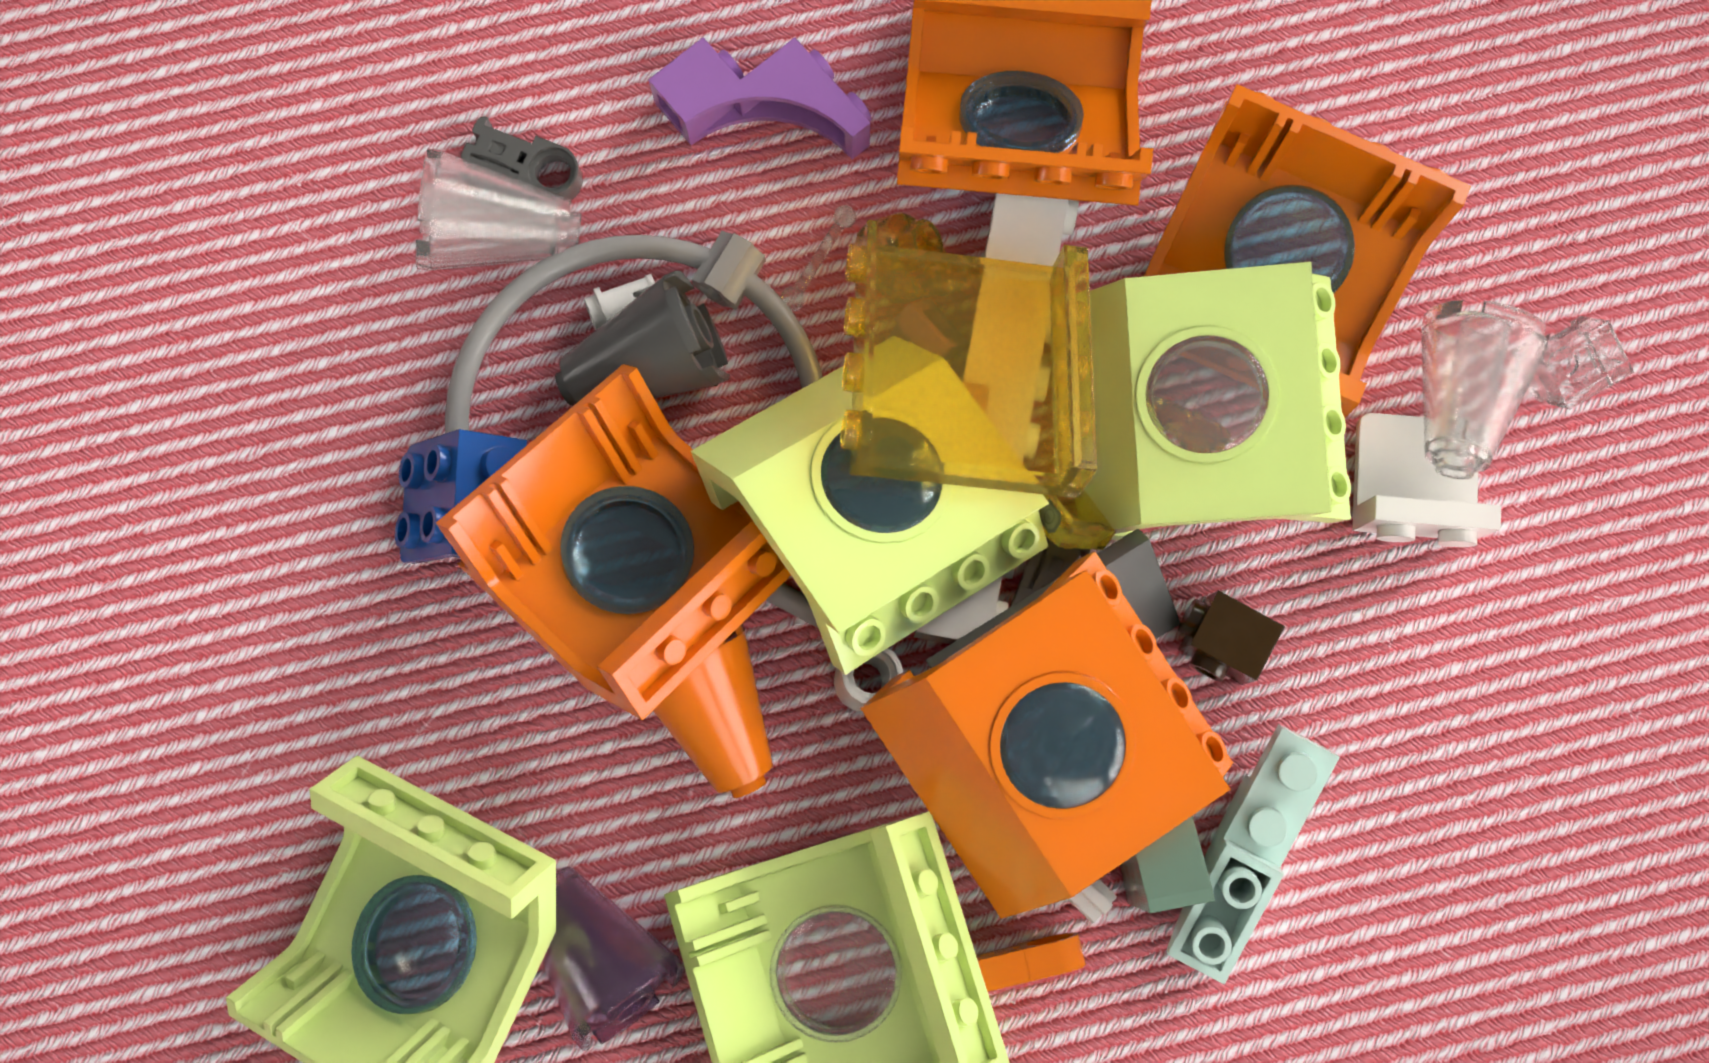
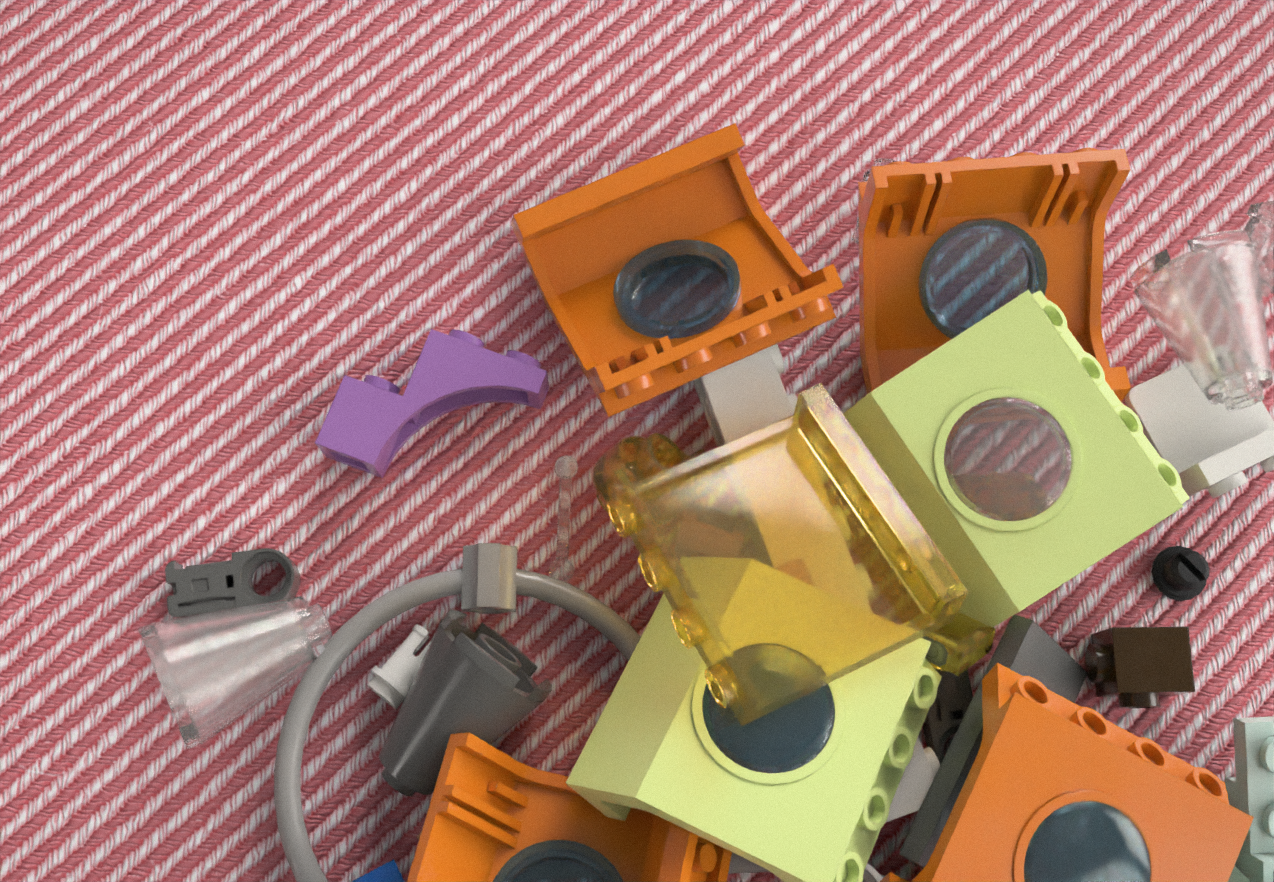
camera: 35 degrees left, 5 degrees down
(1312, 589) = (1180, 573): none -> black piece

